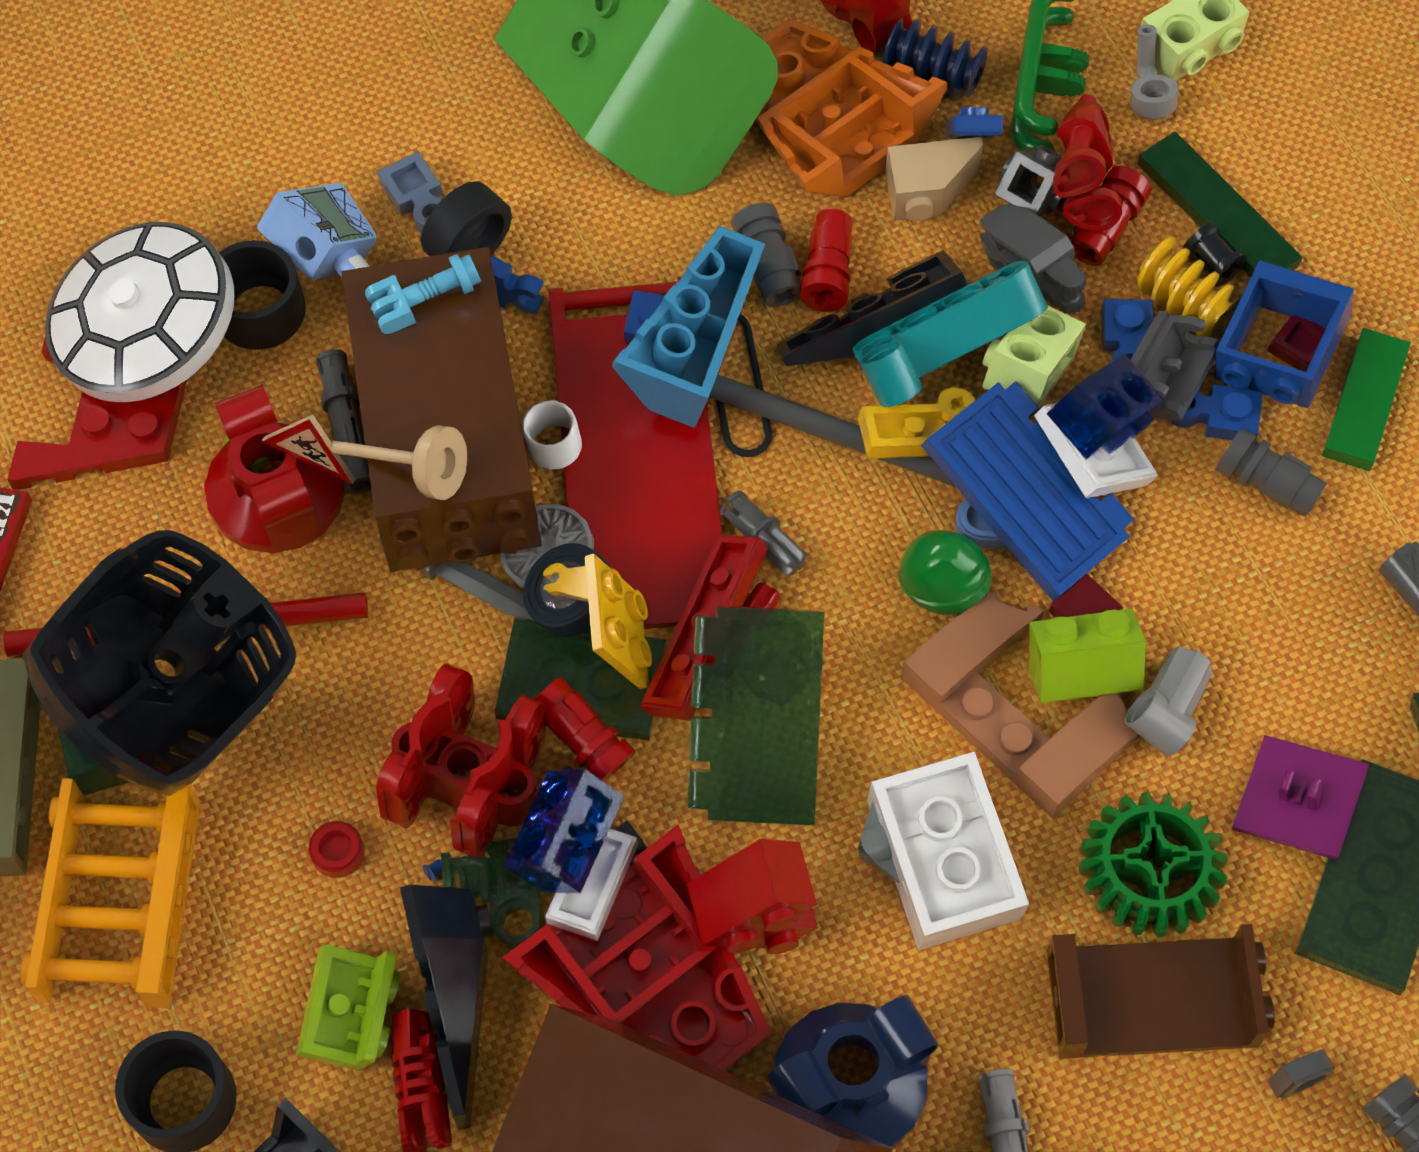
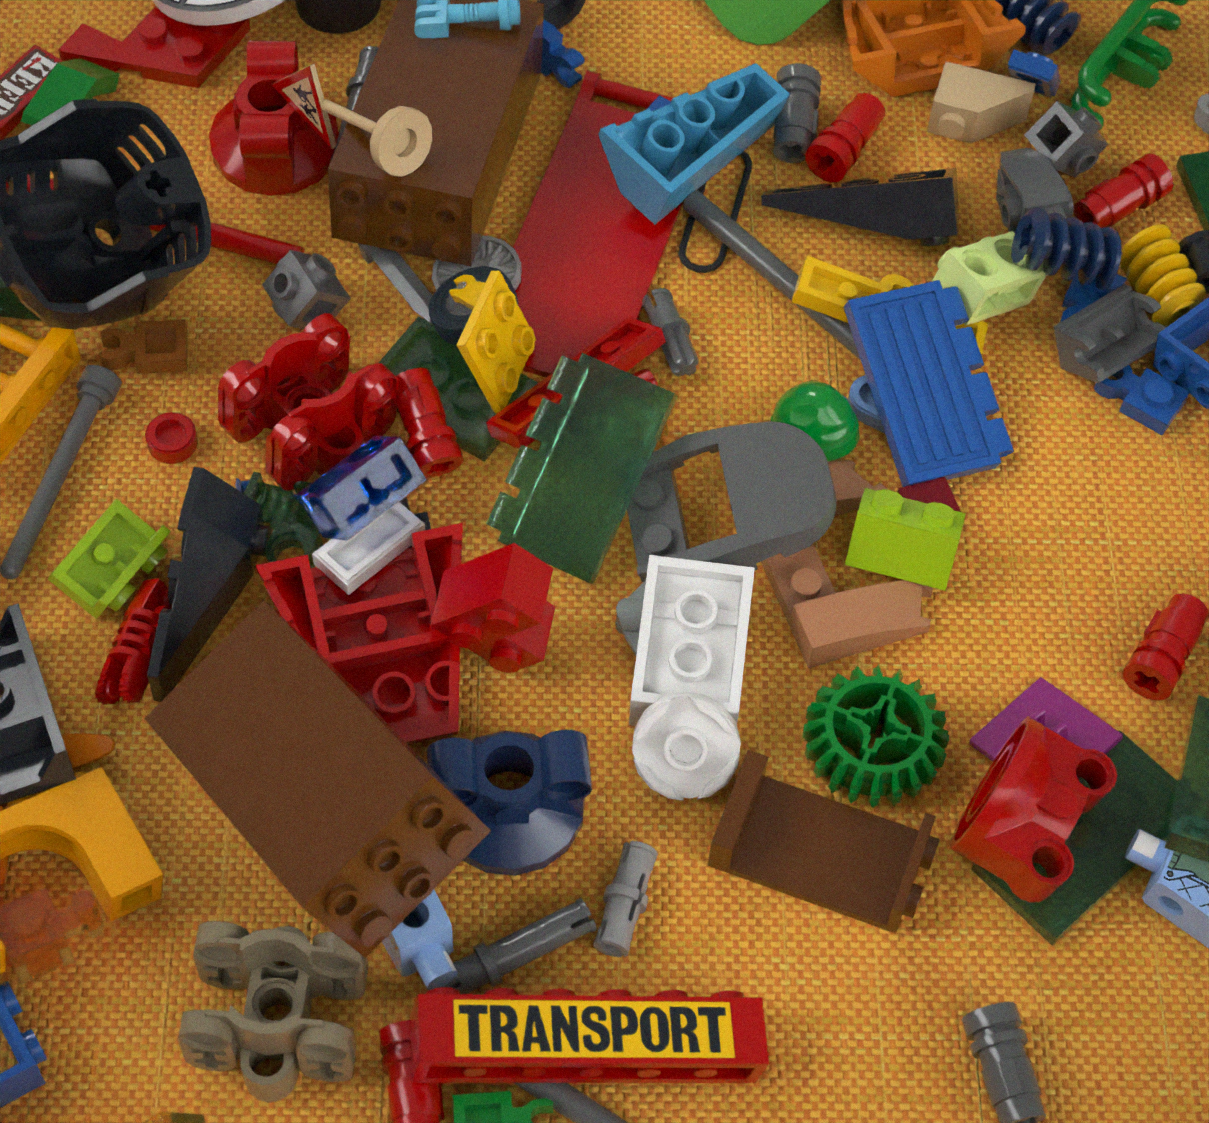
camera: 20 degrees right, 5 degrees down
(46, 528) = (68, 82): none -> green slope
(238, 833) = (96, 390): none -> dark grey piece
(273, 760) = (154, 347): none -> dark orange plate
(395, 640) = (305, 288): none -> flat silver brick
(546, 415) = (526, 164): white piece -> none
(947, 330) = (917, 222): teal beam -> none
(951, 659) = (775, 489): none -> dark grey slope
(992, 955) = (686, 746): none -> white tile
(1084, 166) = (1118, 138): red piece -> none
(1099, 300) = (1069, 245): none -> dark blue piece
(1101, 473) = (1006, 372): white tile -> none
(1106, 408) = (1027, 337): clear blue brick -> none
(1165, 709) = (958, 612): light grey piece -> none
(1276, 476) = (1165, 465): dark grey axle -> none
(1301, 1074) = (920, 966): dark grey tile -> none
(1330, 880) = (1030, 808): none -> red piece
(1364, 649) = (1165, 647): none -> red axle

